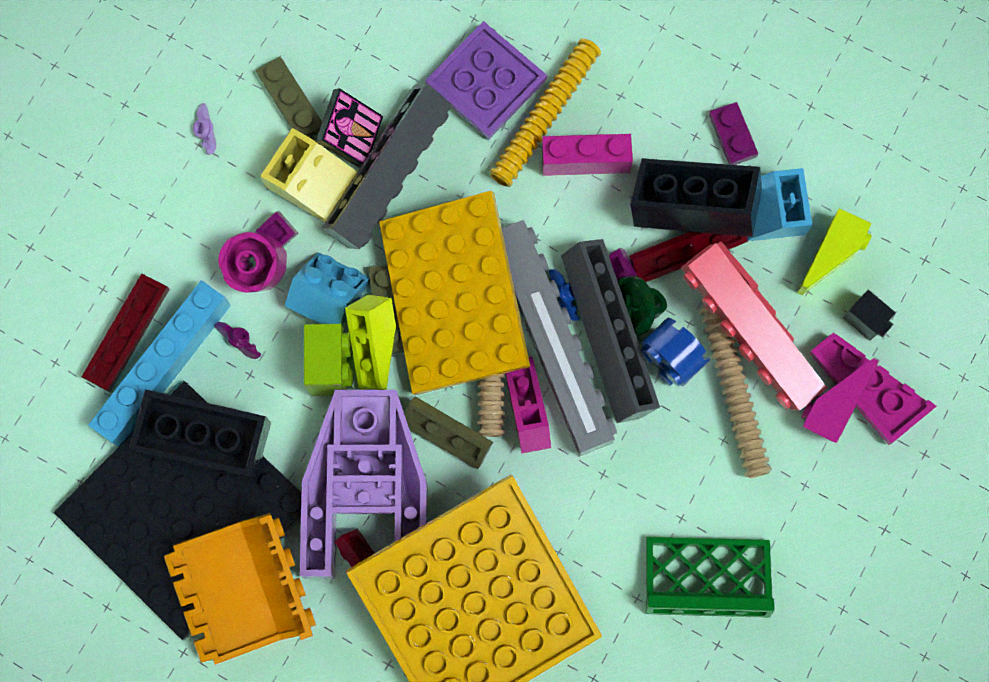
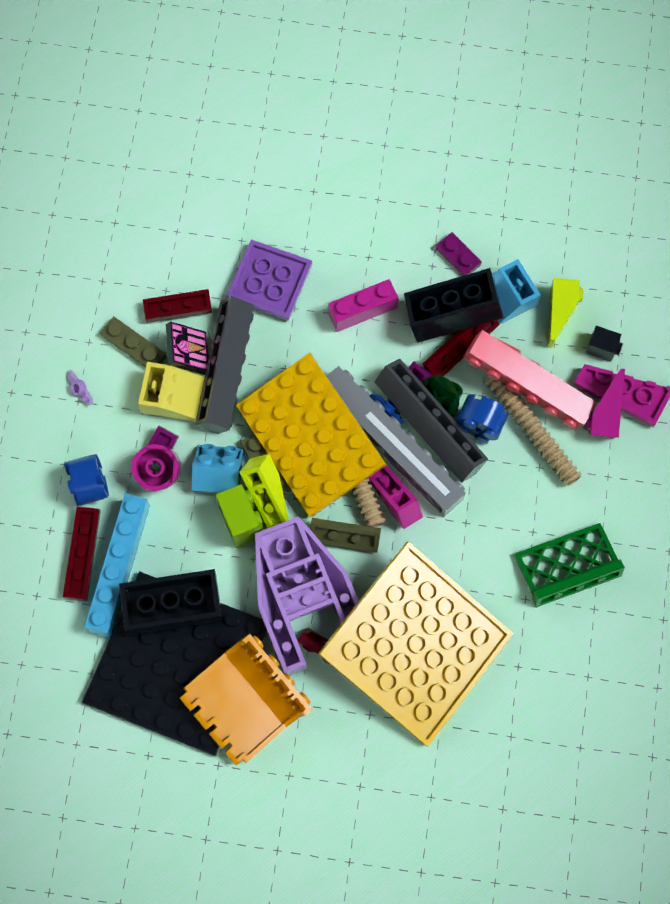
camera: 25 degrees left, 5 degrees down
(164, 245) = (86, 480): none -> blue brick
(239, 339) = (167, 527): magenta piece -> none
(361, 71) = (177, 306): none -> dark red plate
(545, 112) = (321, 287): yellow piece -> none

